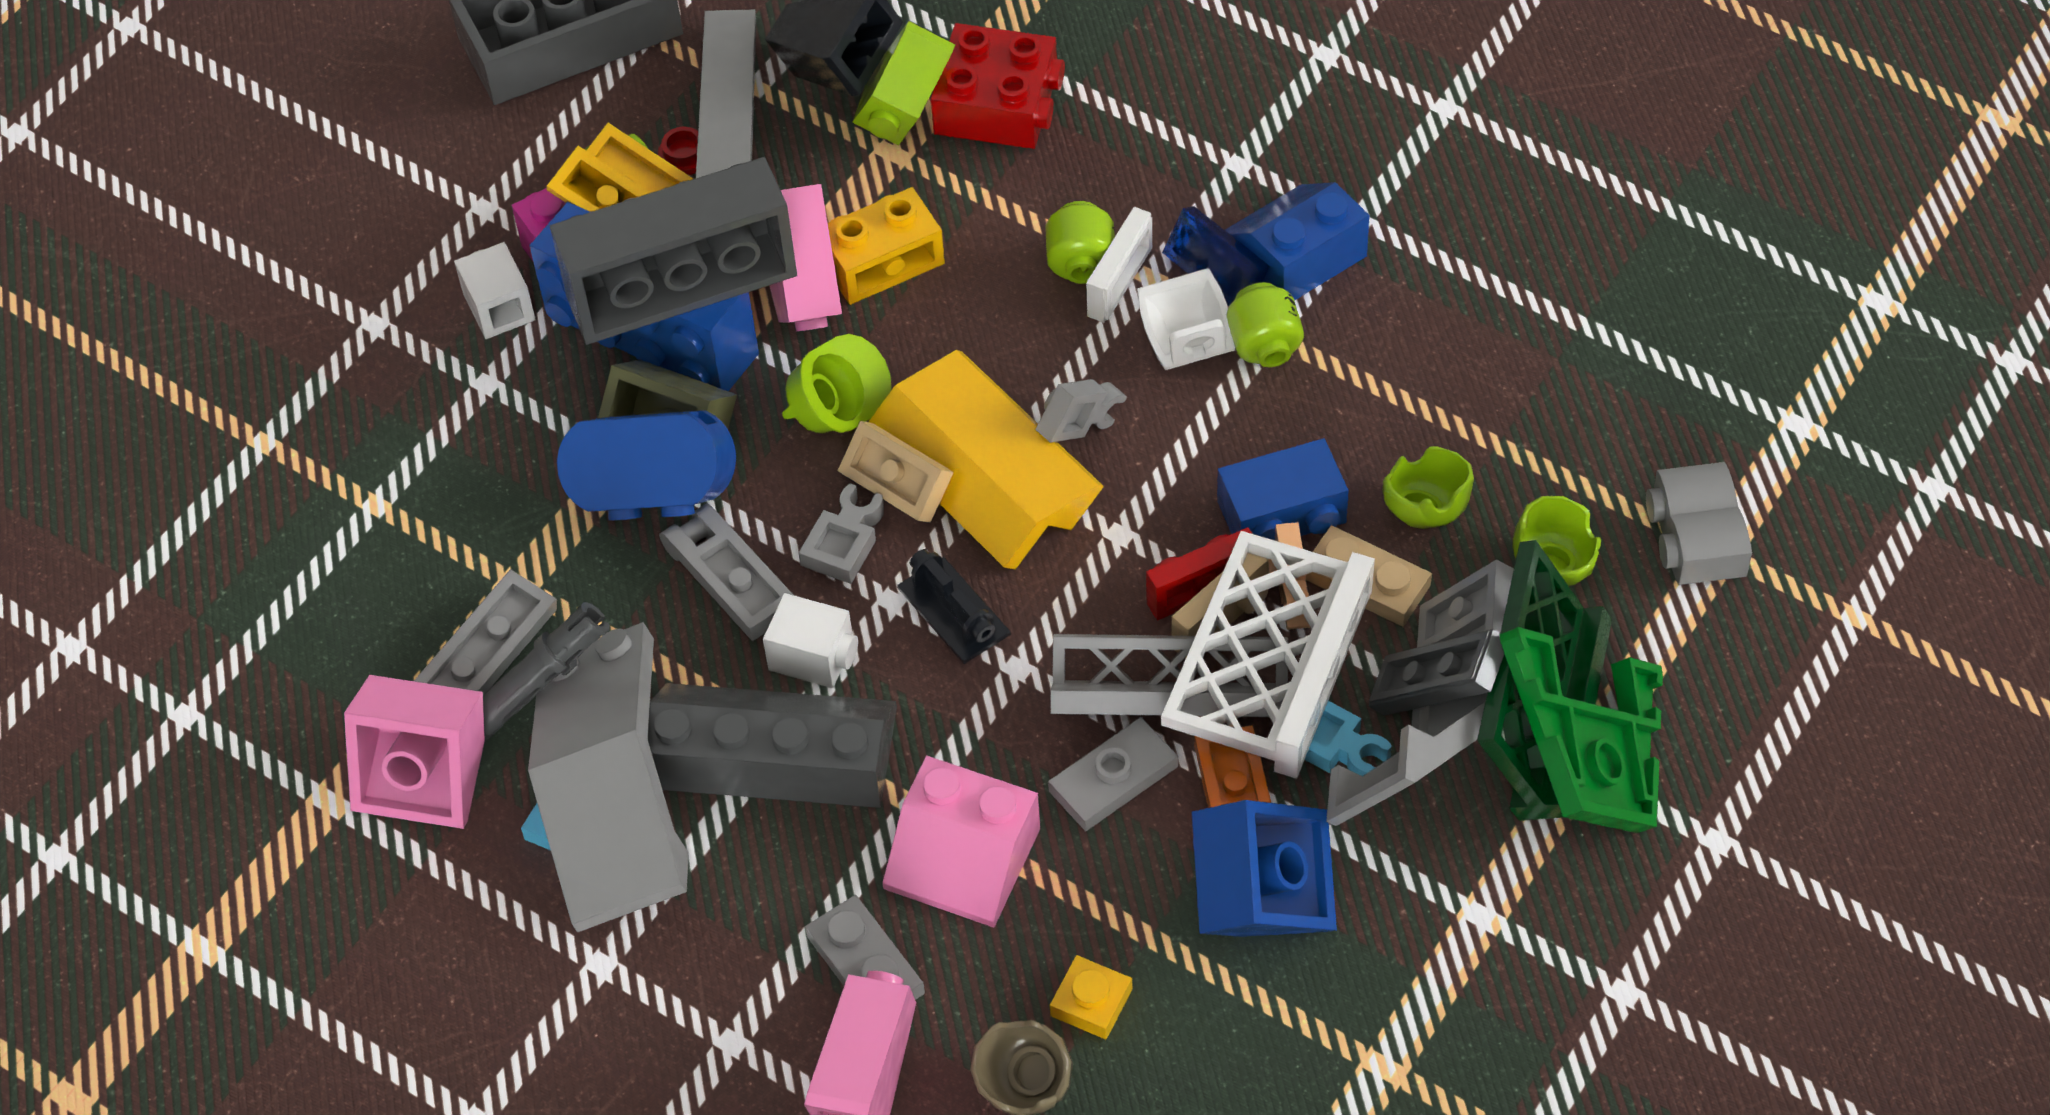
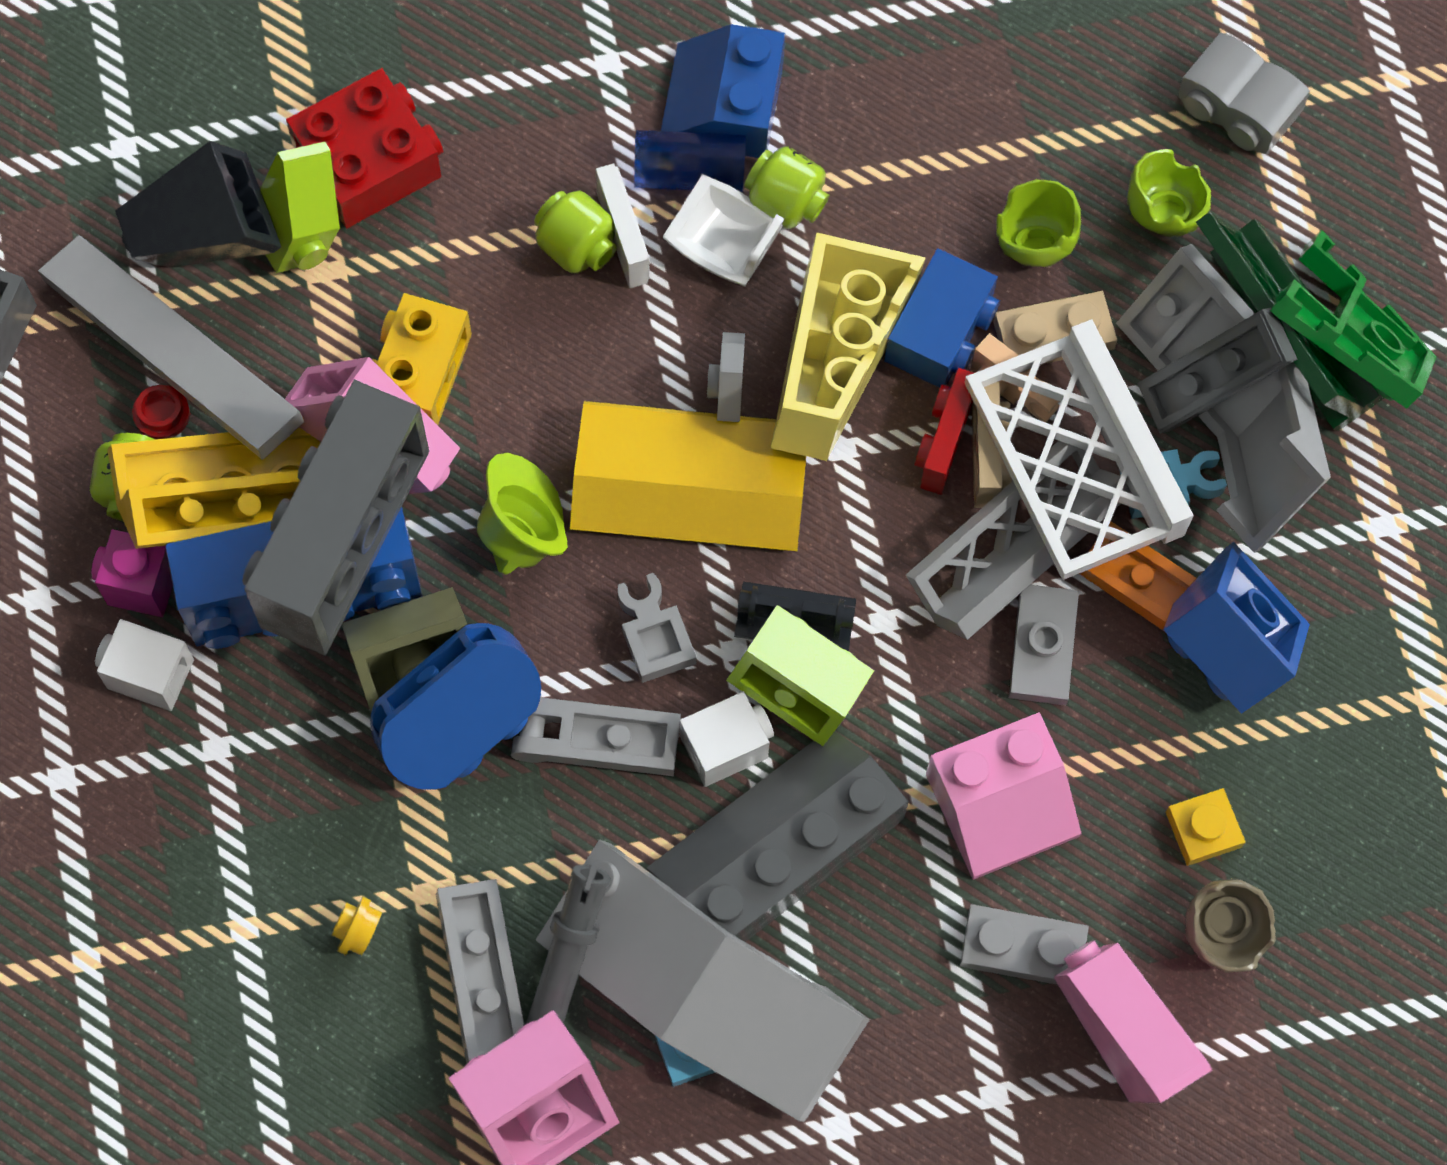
camera: 50 degrees left, 15 degrees up
(438, 554) = (356, 926): none -> yellow plate
(896, 471) = (641, 545): tan plate -> none
(903, 636) = (800, 675): none -> brick
(1170, 437) = (839, 335): none -> light yellow wedge

